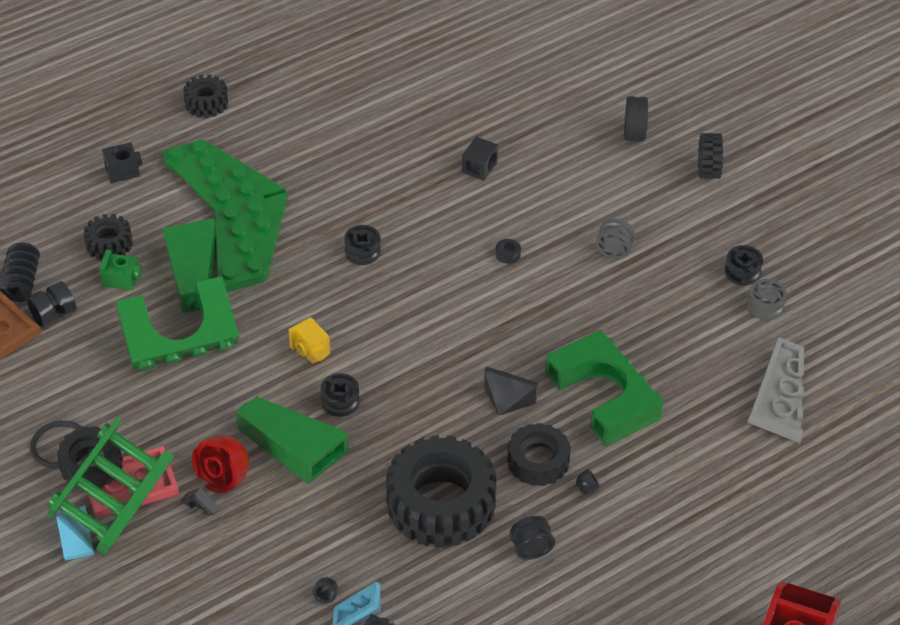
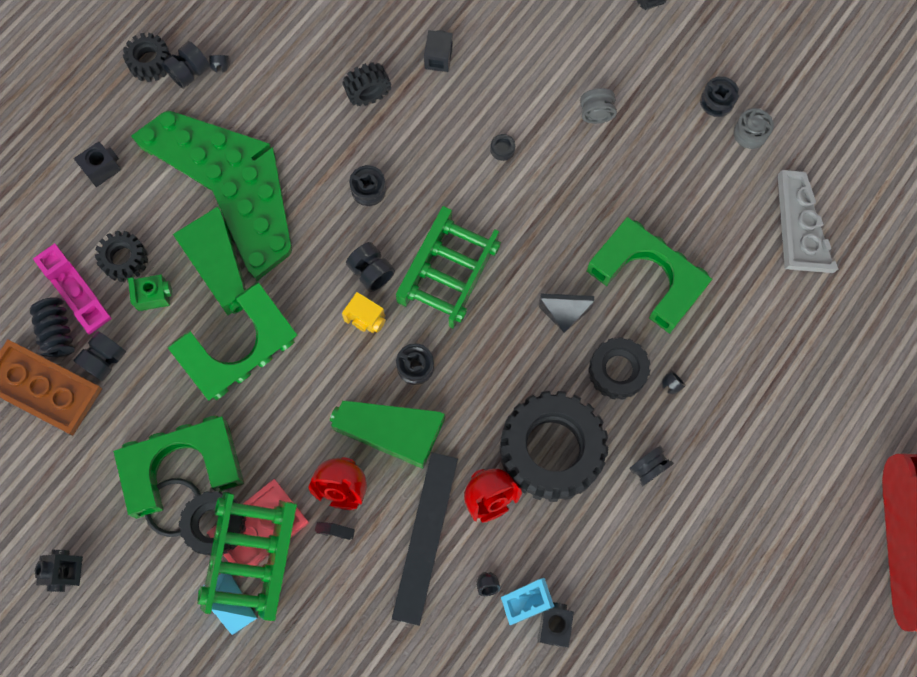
camera: 20 degrees left, 25 degrees up
(50, 394) = (140, 462): none -> green arch
(51, 247) = (72, 288): none -> dark pink slope
(237, 108) = (186, 64): none -> black wheel
(269, 115) = (219, 60): none -> black hinge
(282, 537) = (425, 539): none -> black tile
(333, 305) = (367, 264): none -> black wheel
(362, 514) = (490, 493): none -> red cylinder
(397, 173) = (366, 84): none -> black tyre
(400, 306) = (432, 247): none -> green fence

